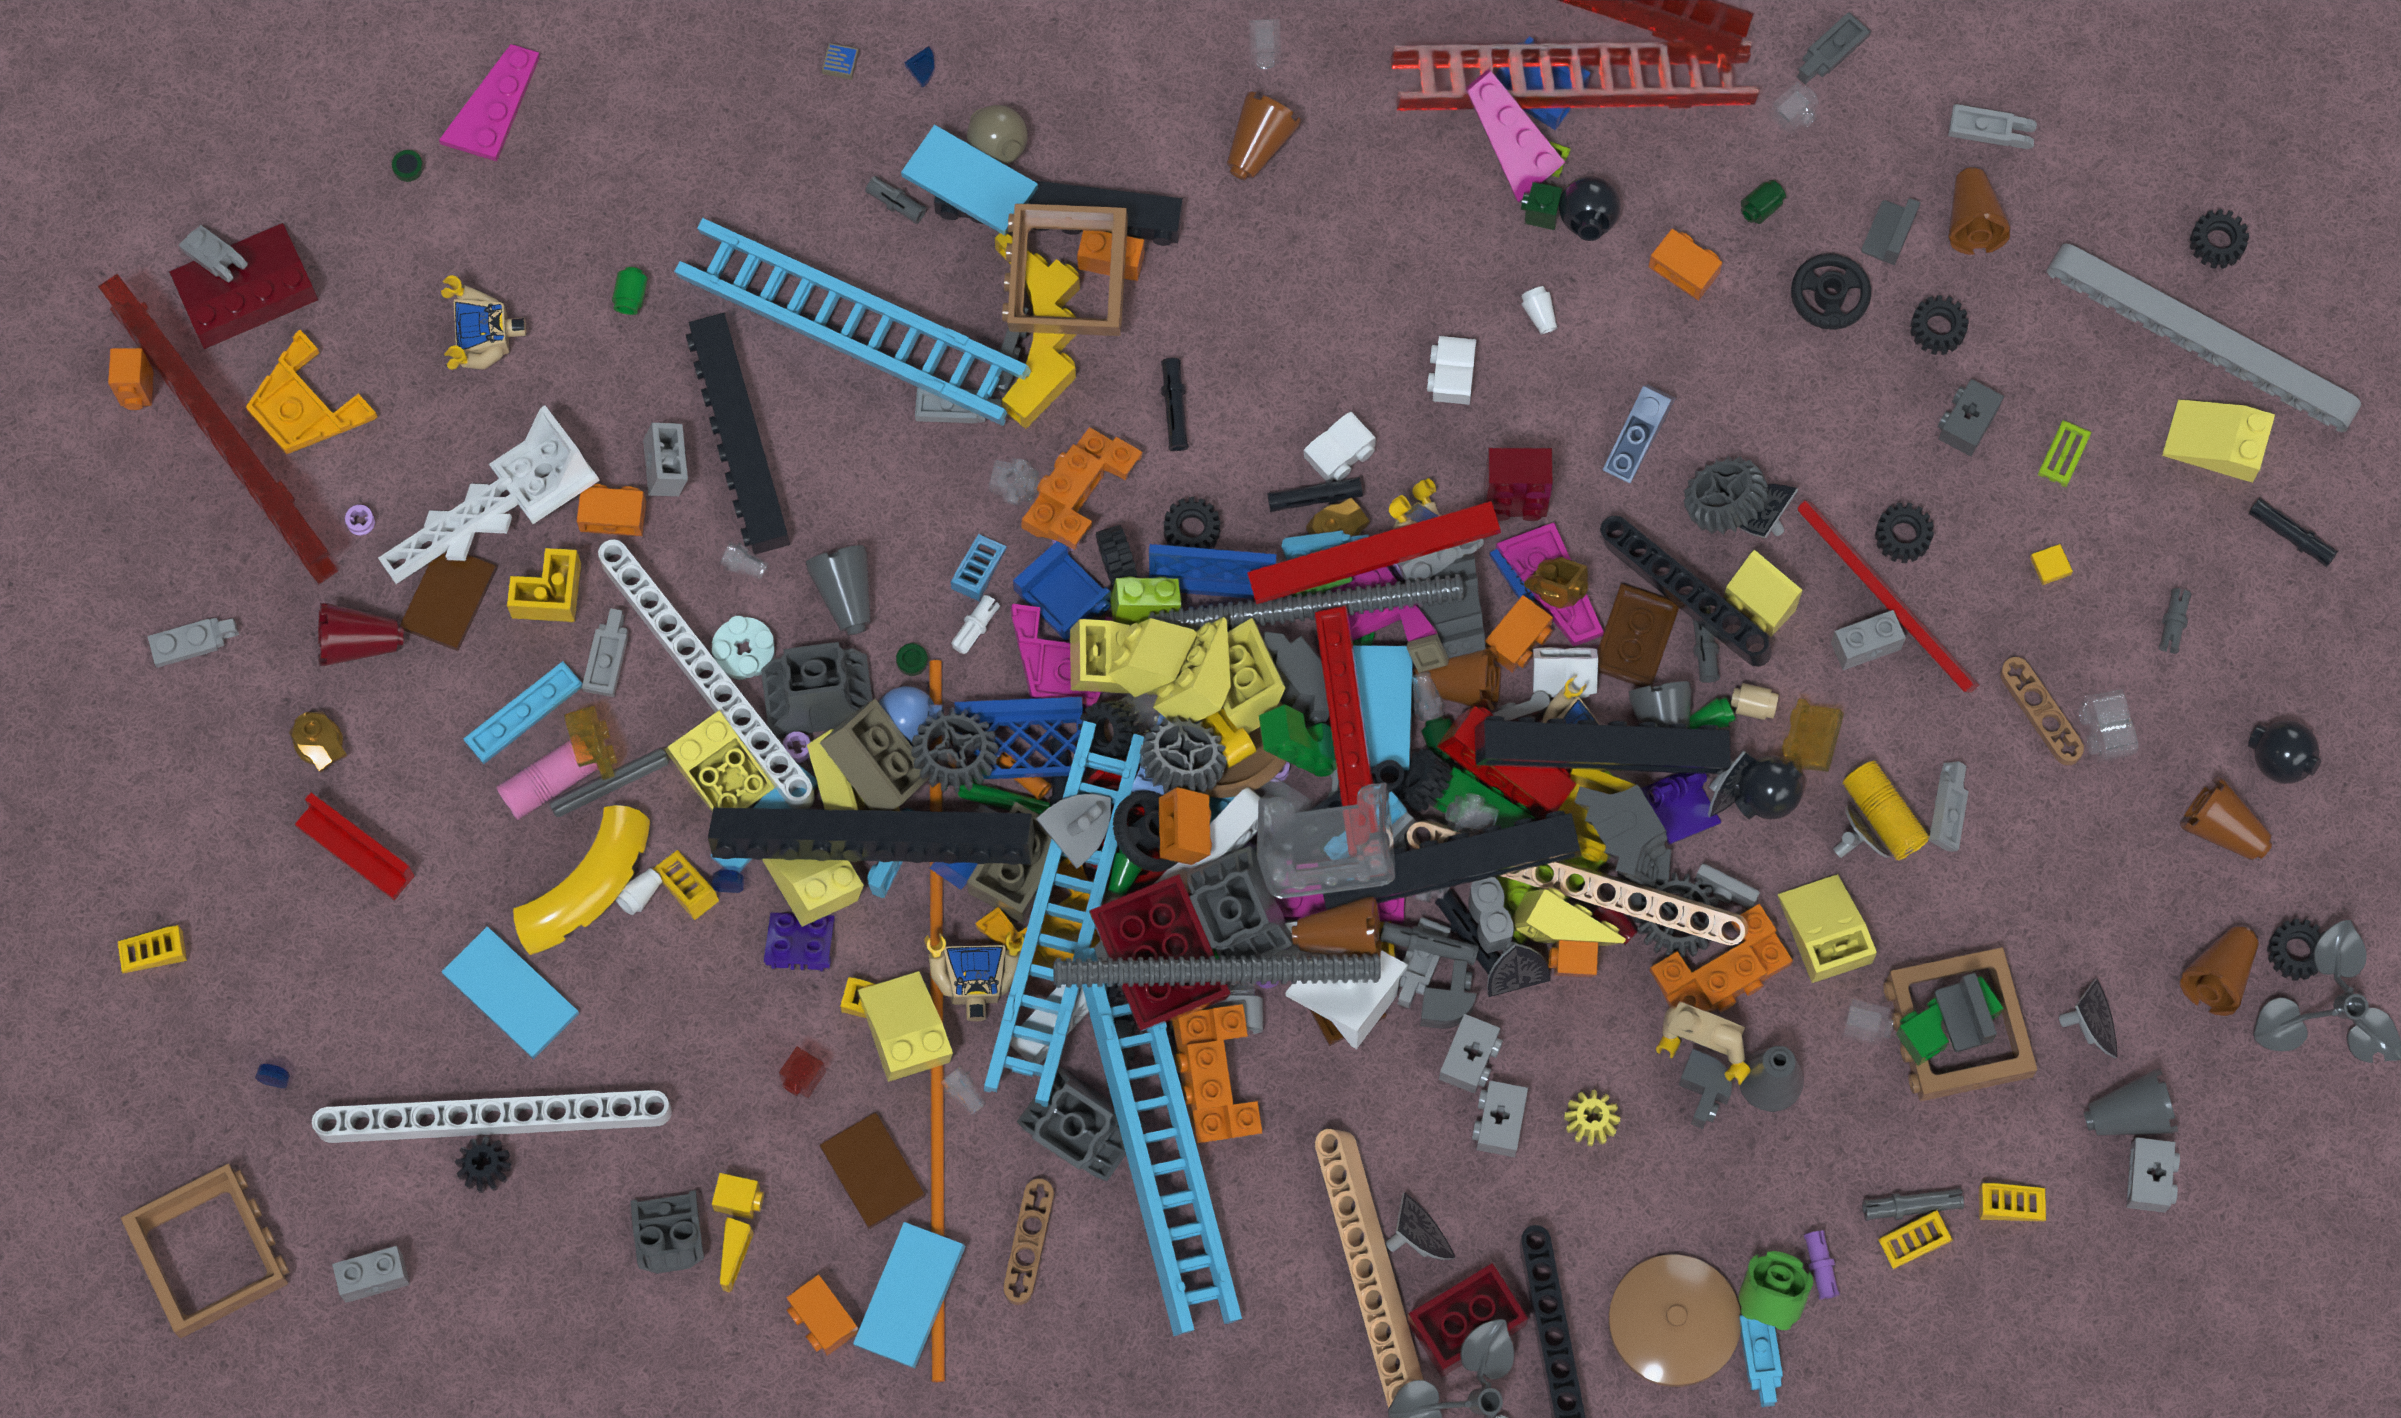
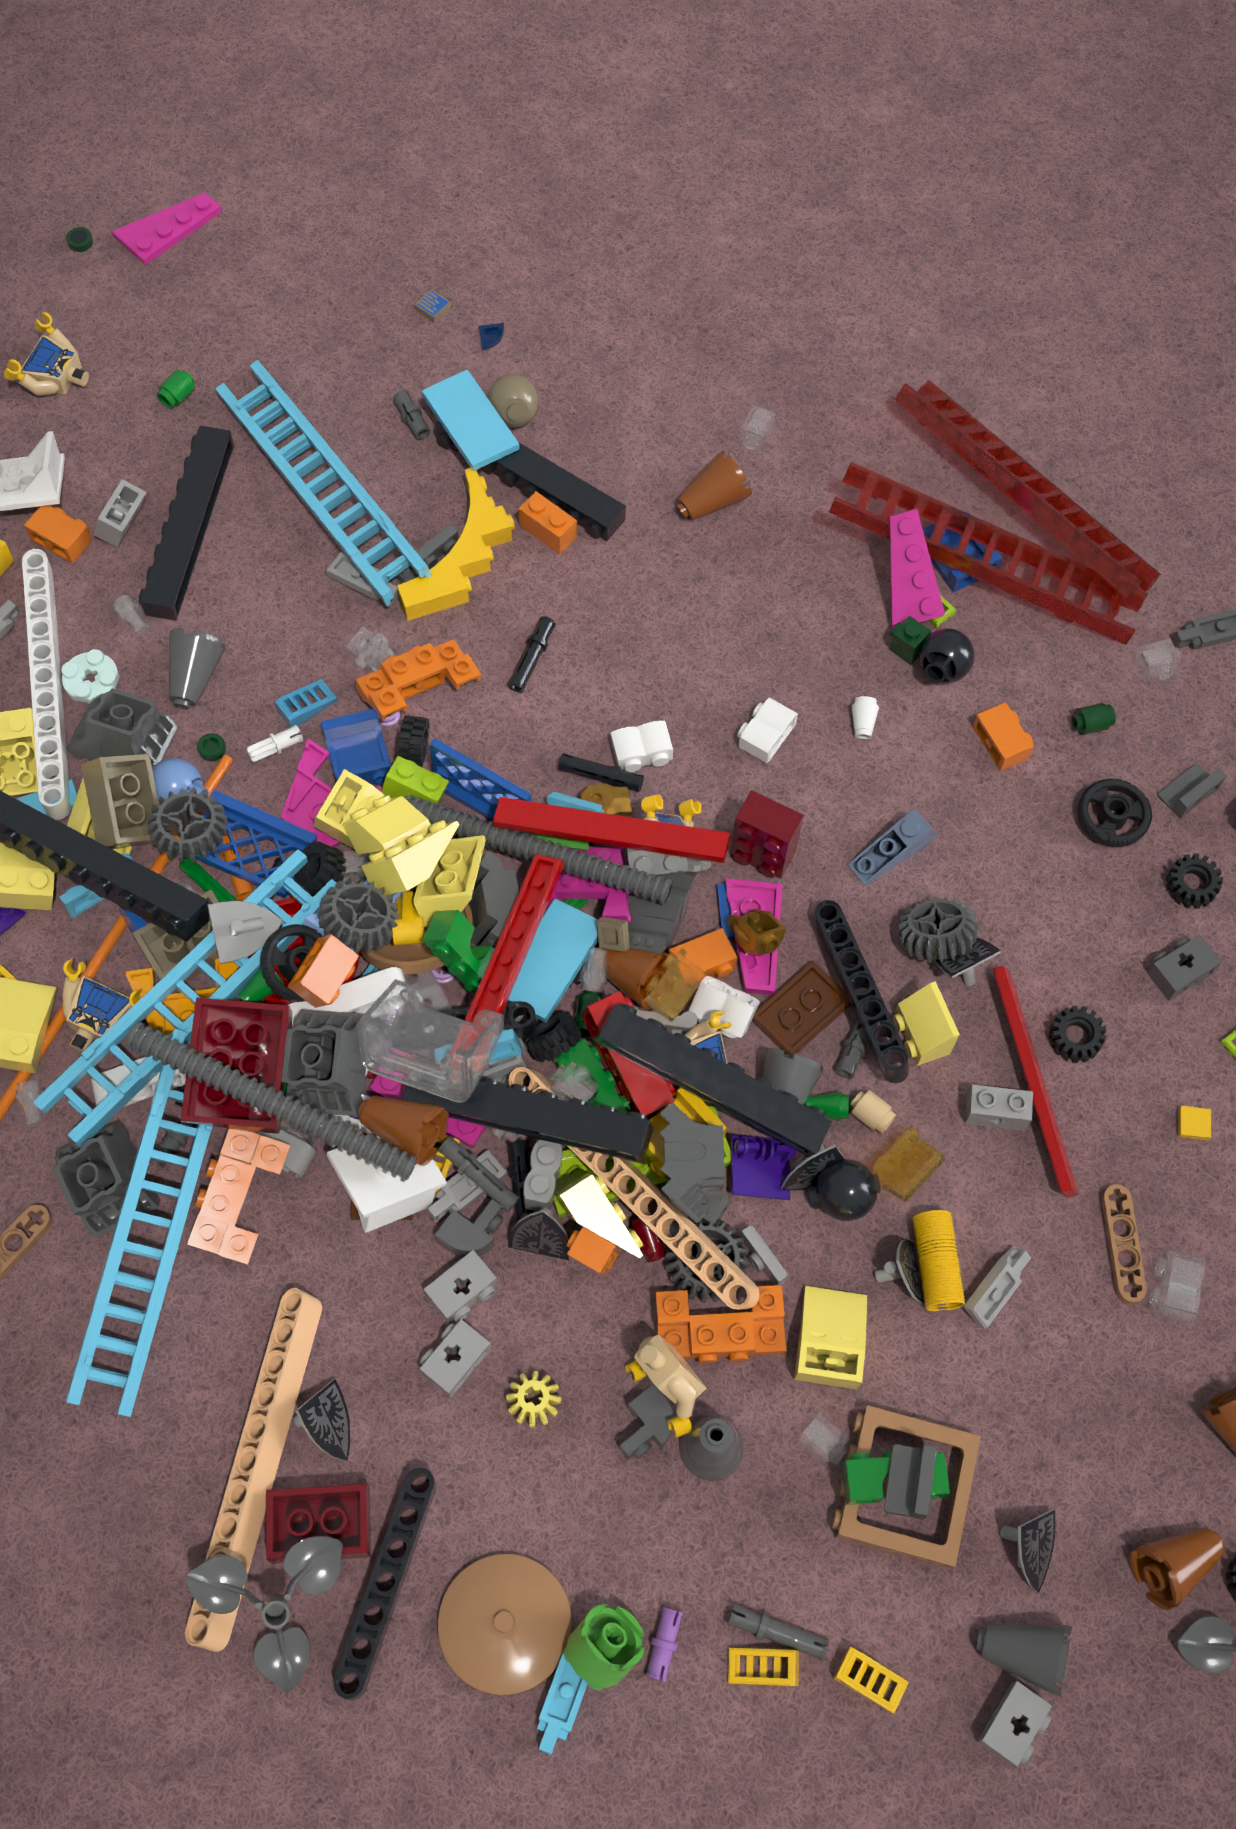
camera: 25 degrees right, 5 degrees down
(803, 740) = (73, 764): lavender bush -> none
(1064, 218) = (497, 461): medium nougat piece -> none
(1197, 510) = (490, 736): black tyre -> none
(1512, 674) = (674, 986): none -> clear yellow bracket

